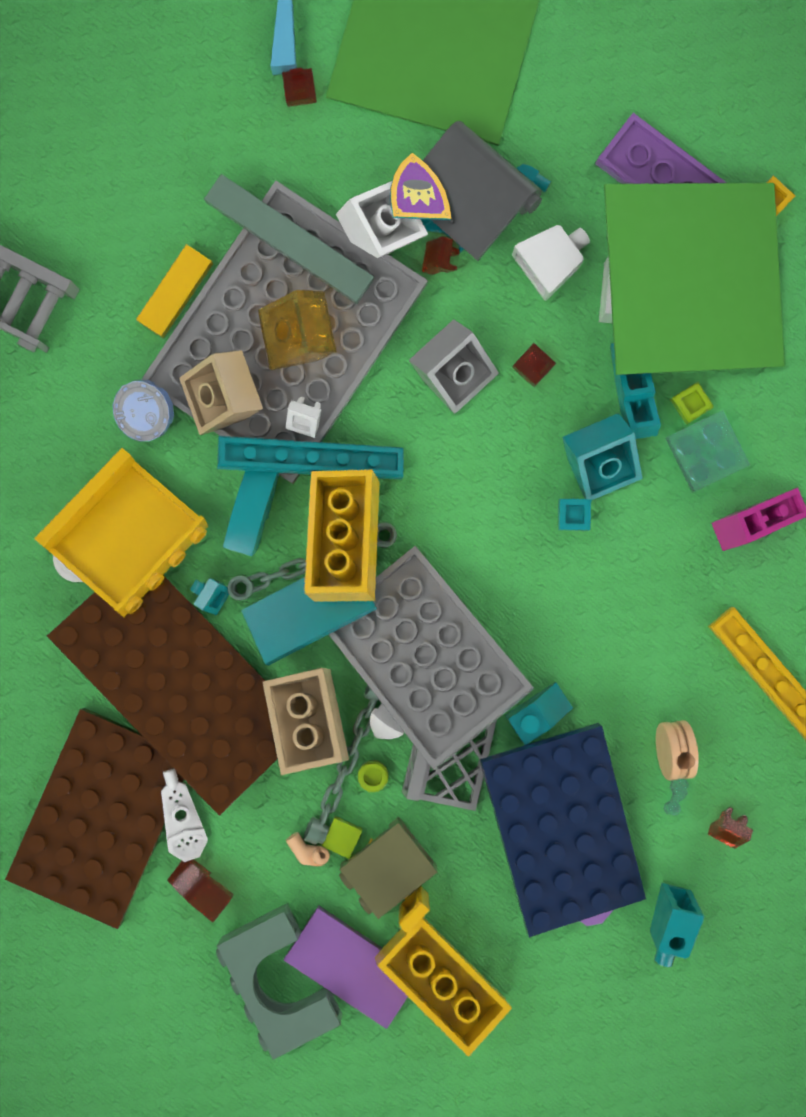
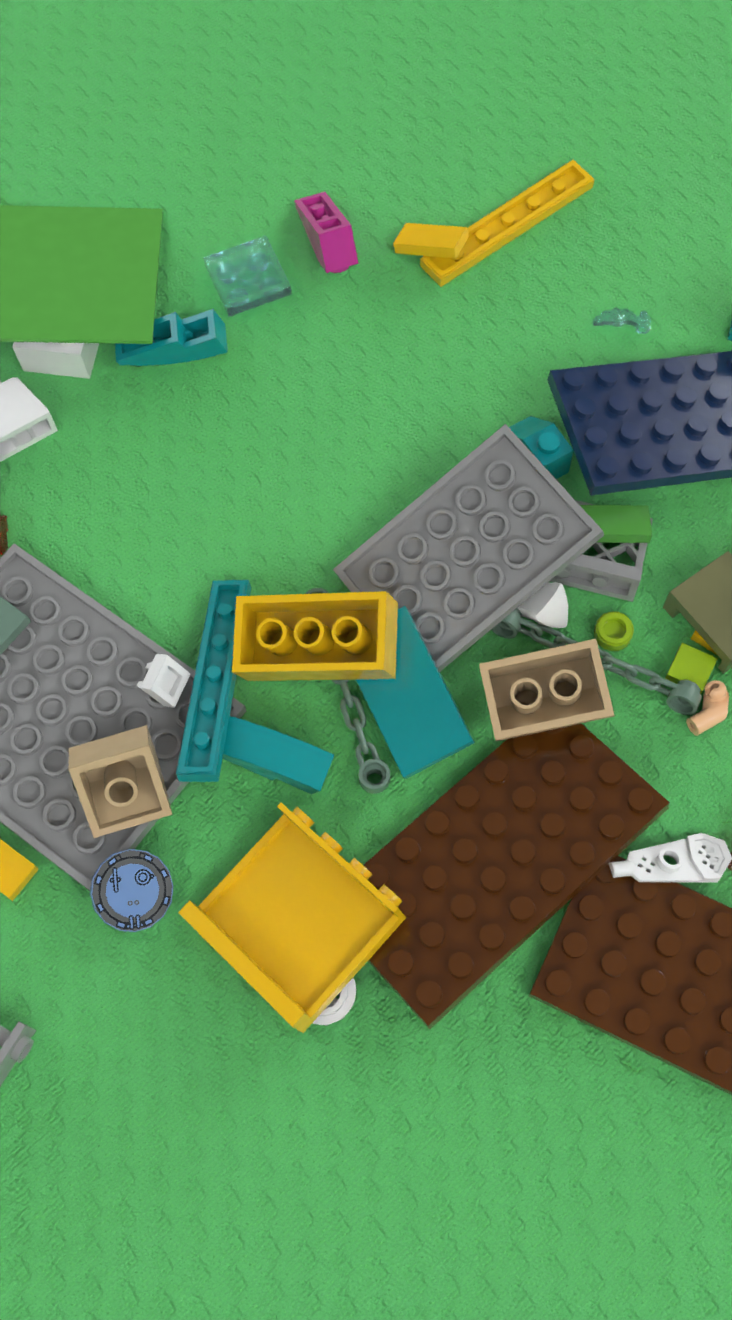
camera: 85 degrees left, 20 degrees down
(210, 595) = (381, 813): teal tile -> none
(297, 329) = (52, 686): clear yellow slope -> none
(454, 365) = (119, 519): light grey slope -> none
(465, 778) = (622, 522): none -> bright green tile
(534, 365) = (130, 441): clear red tile -> none
(574, 514) = (307, 401): teal tile -> none
(603, 456) = (243, 371): teal slope -> none
(677, 750) = (578, 307): light nougat head -> none
(692, 403) = (192, 291): lime tile -> none
(730, 831) = (664, 267): clear red tile -> none
(751, 616) = (430, 240): none -> yellow tile

